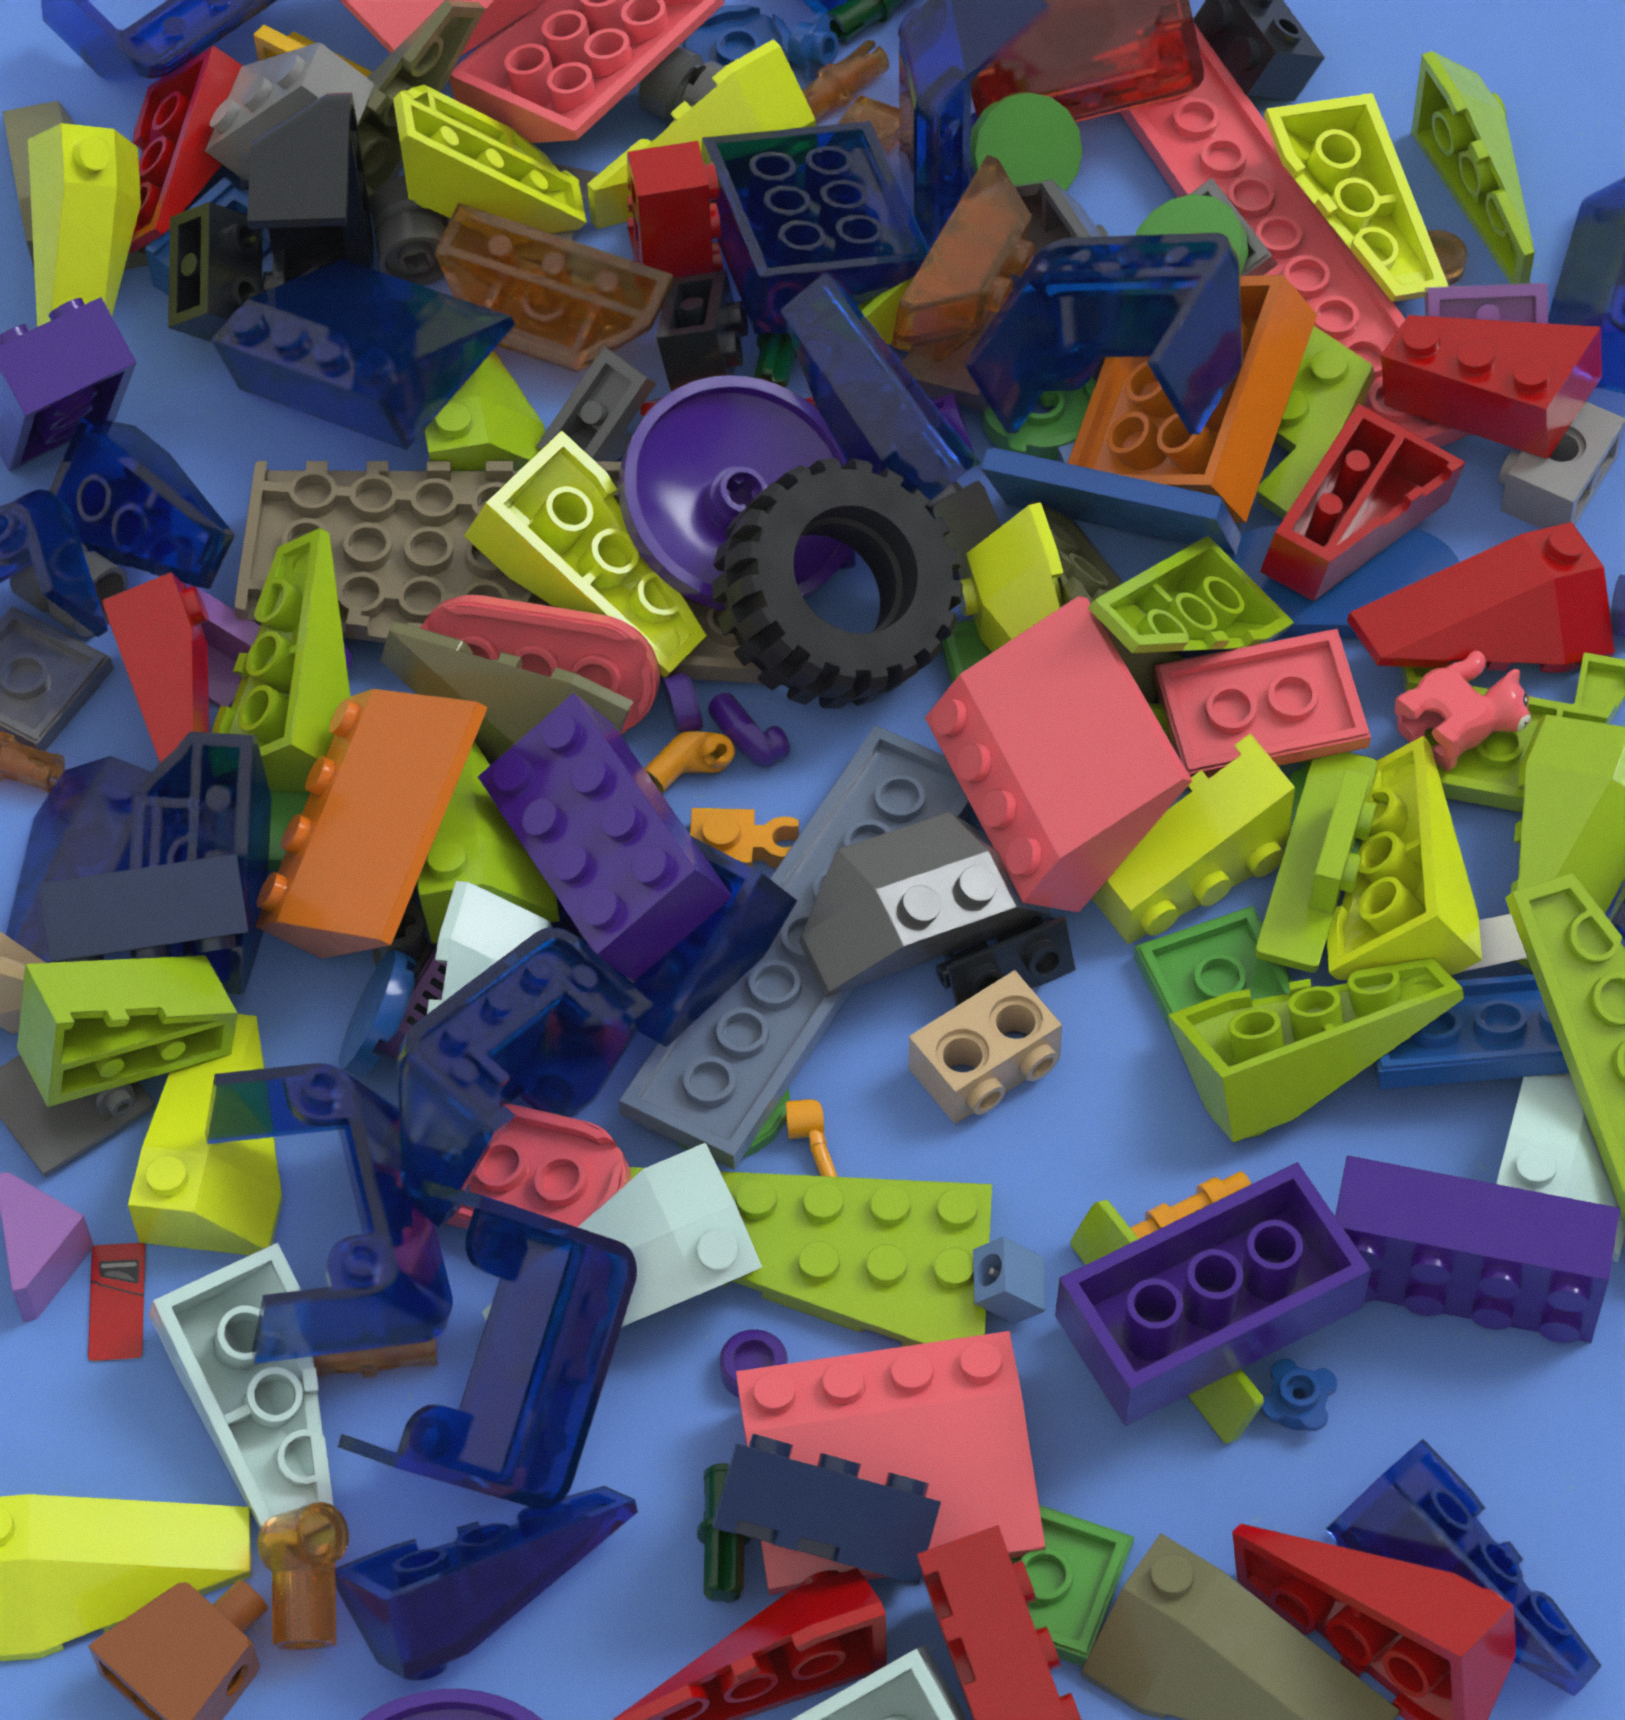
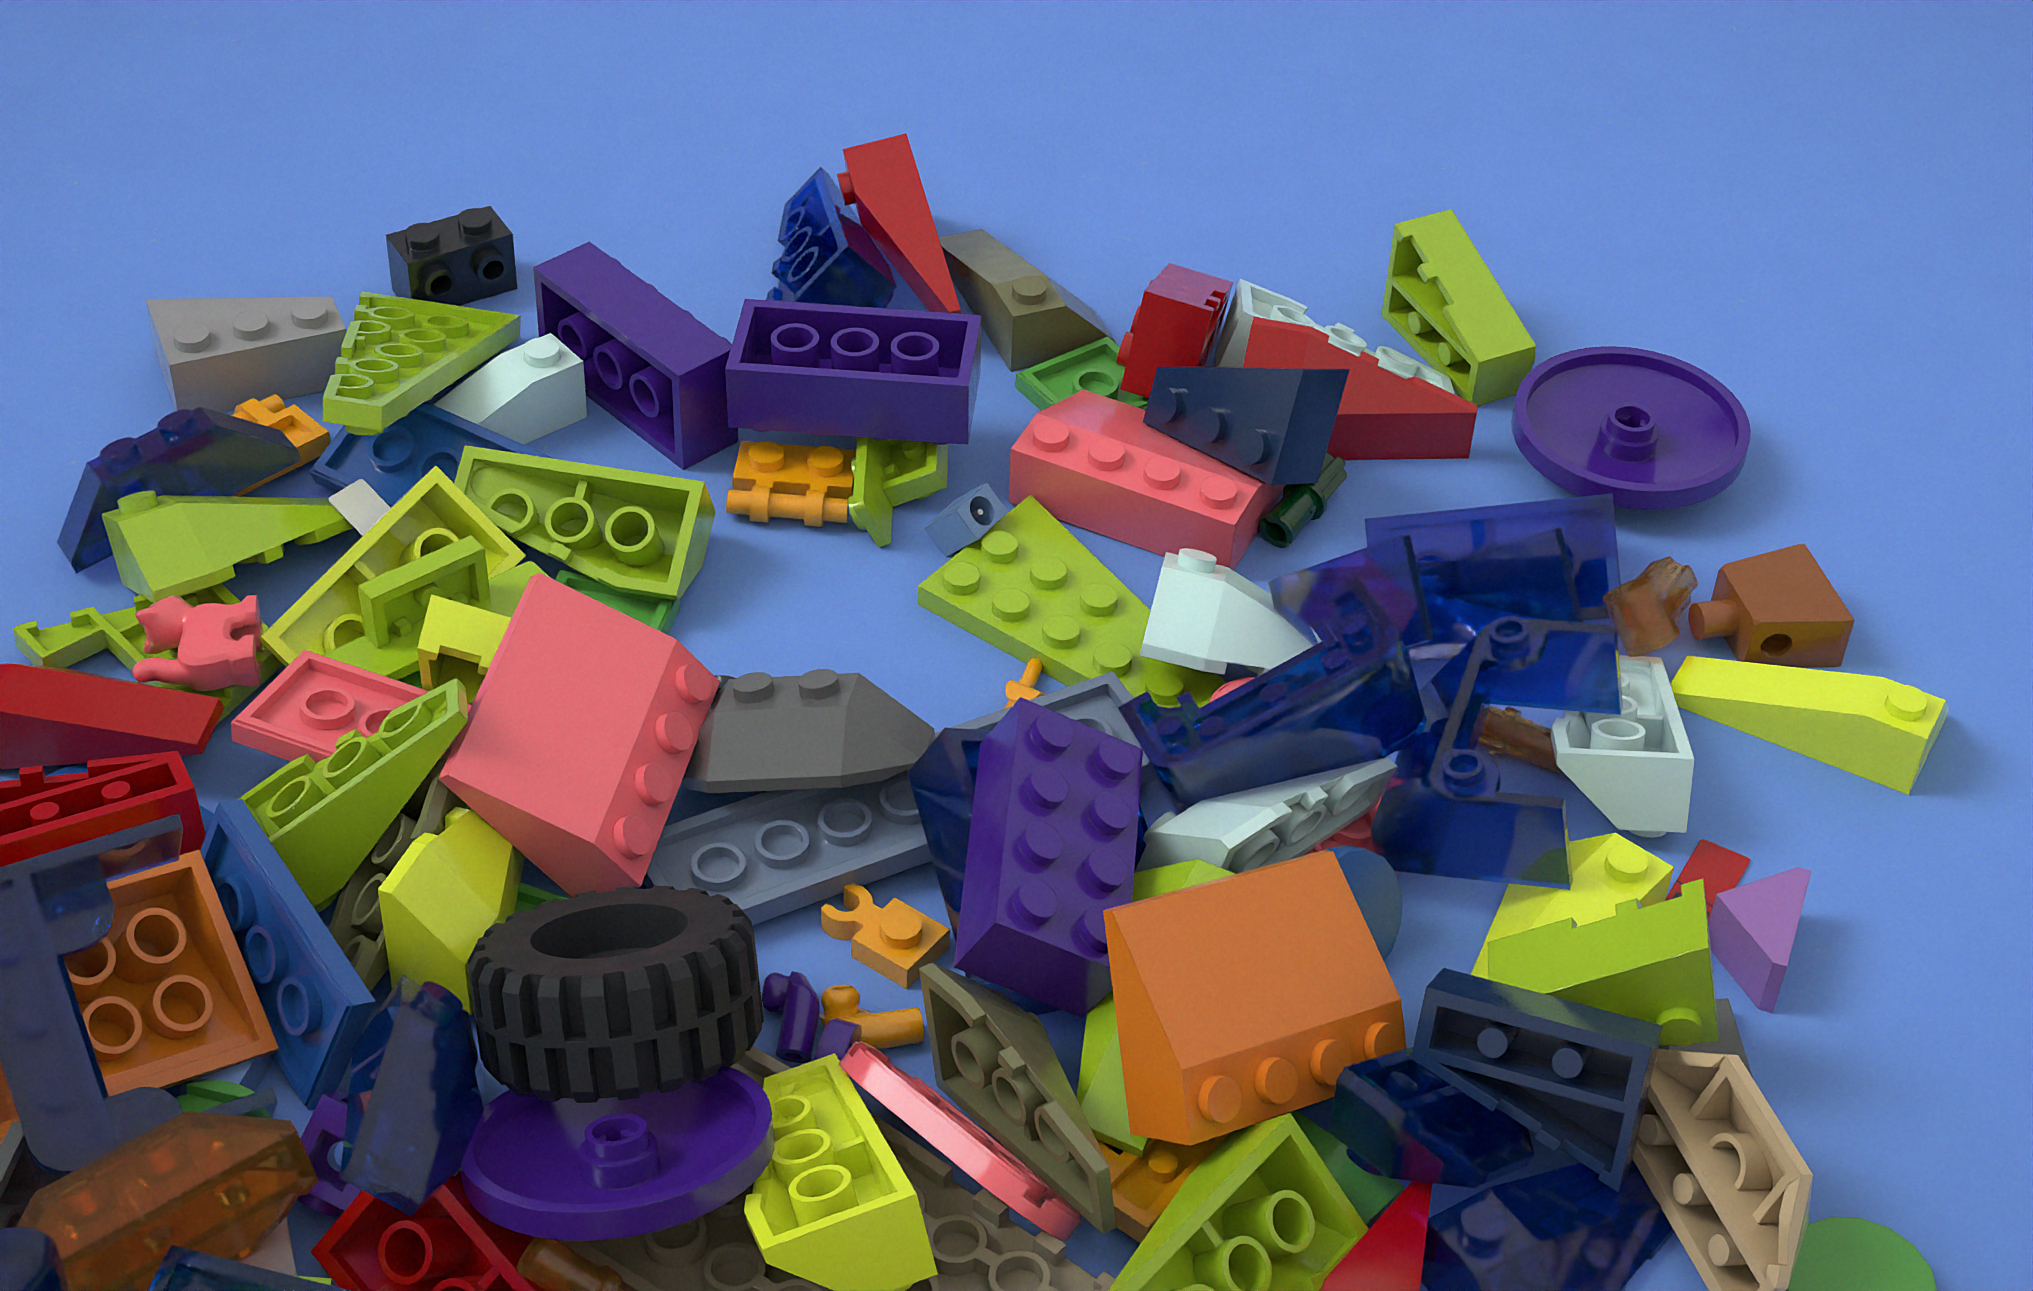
camera: 150 degrees left, 15 degrees down
(975, 1037) = (837, 642): tan brick -> none

